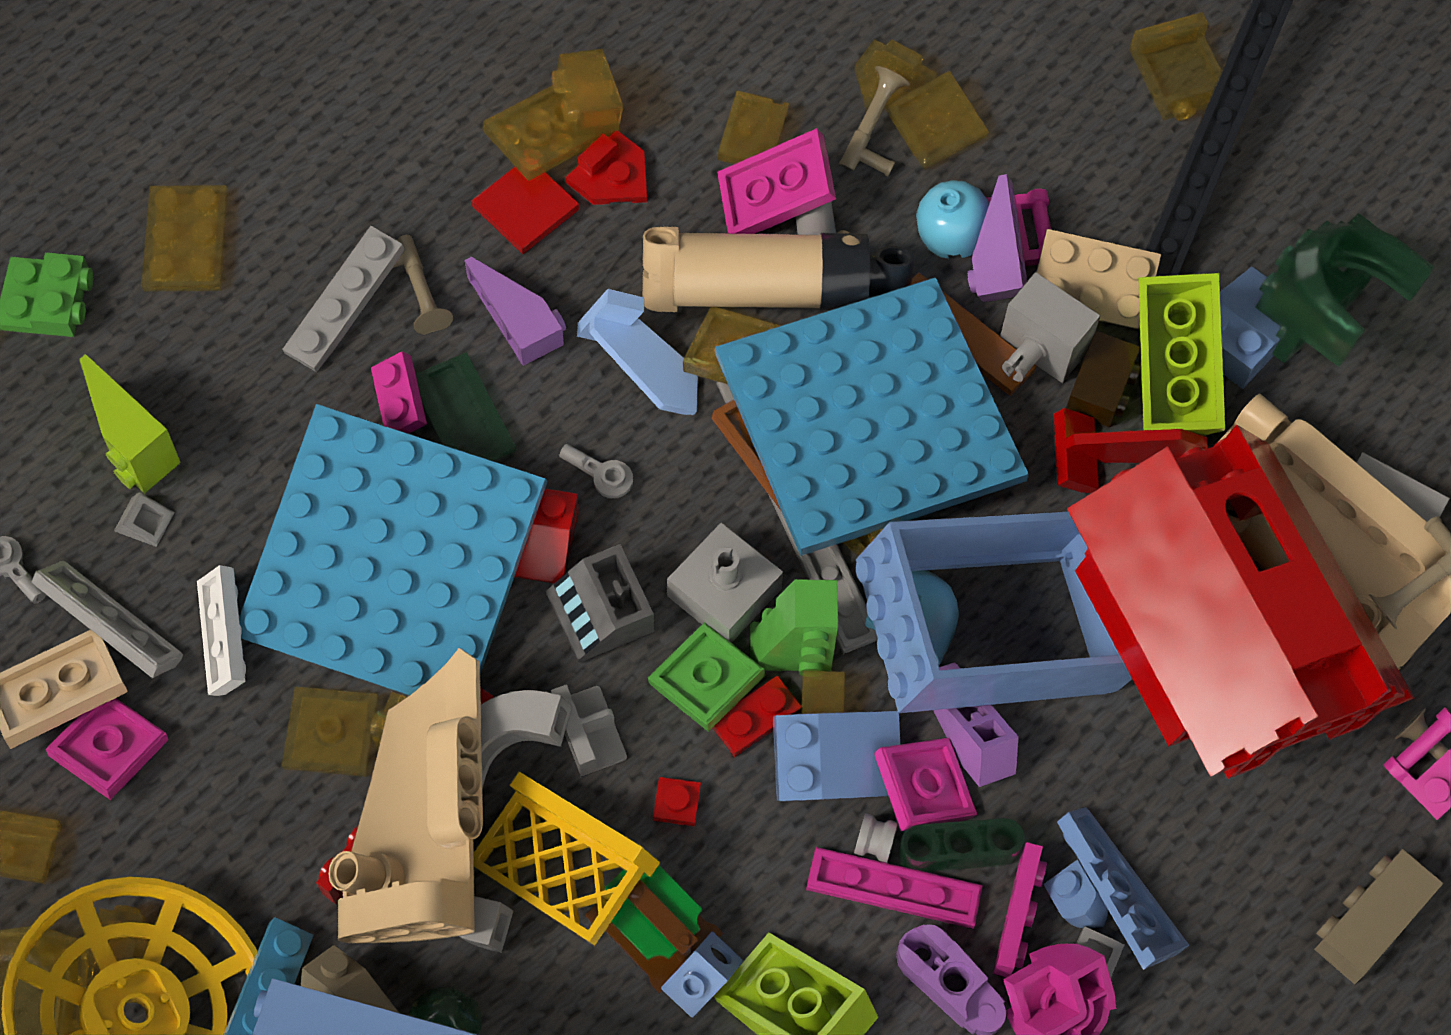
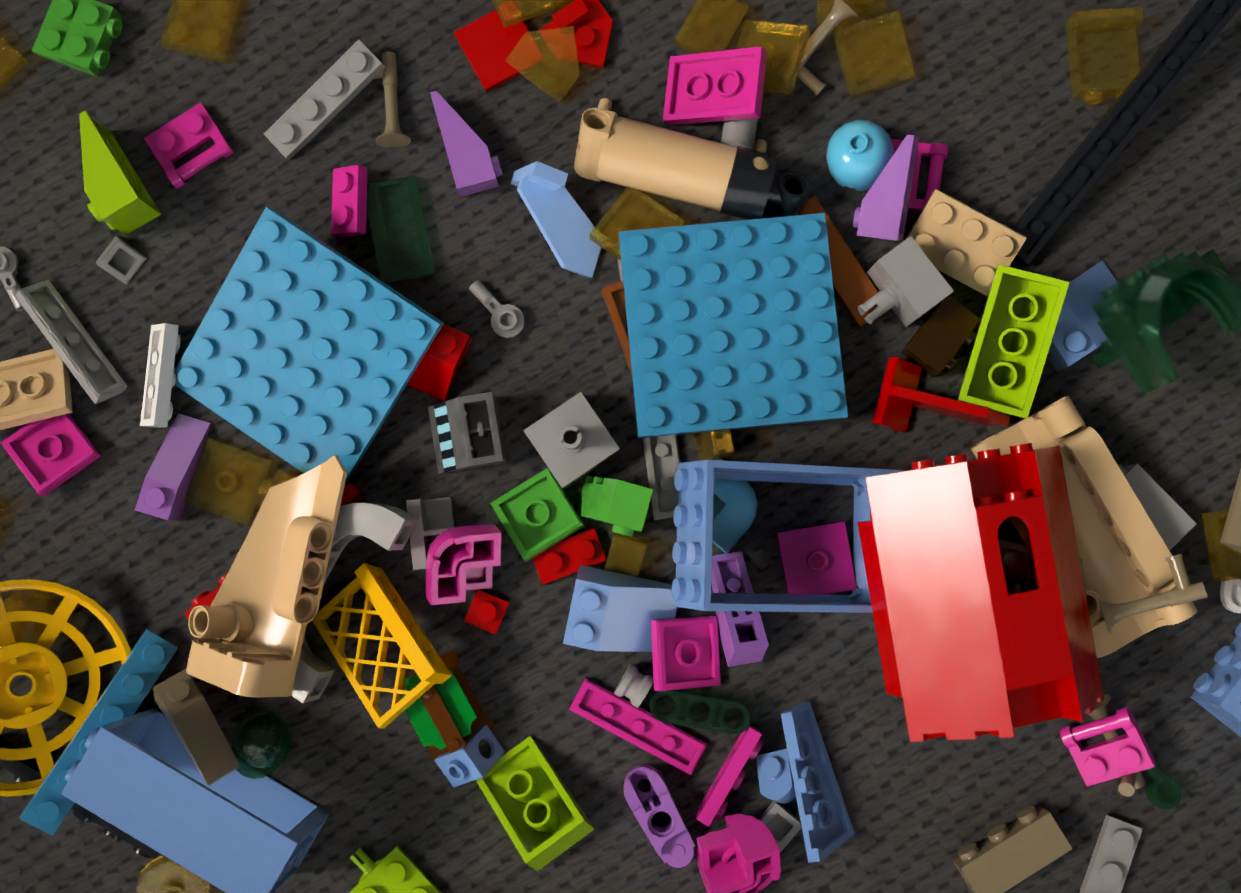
camera: 15 degrees right, 20 degrees up
(190, 373) = (182, 137): none -> dark pink plate
(262, 732) = (173, 469): none -> medium lavender slope
(585, 202) = (548, 60): none -> clear yellow plate
(634, 737) = (461, 562): none -> dark pink brick
(842, 138) = (784, 49): none -> clear yellow plate
(1040, 637) = (817, 560): none -> dark pink plate

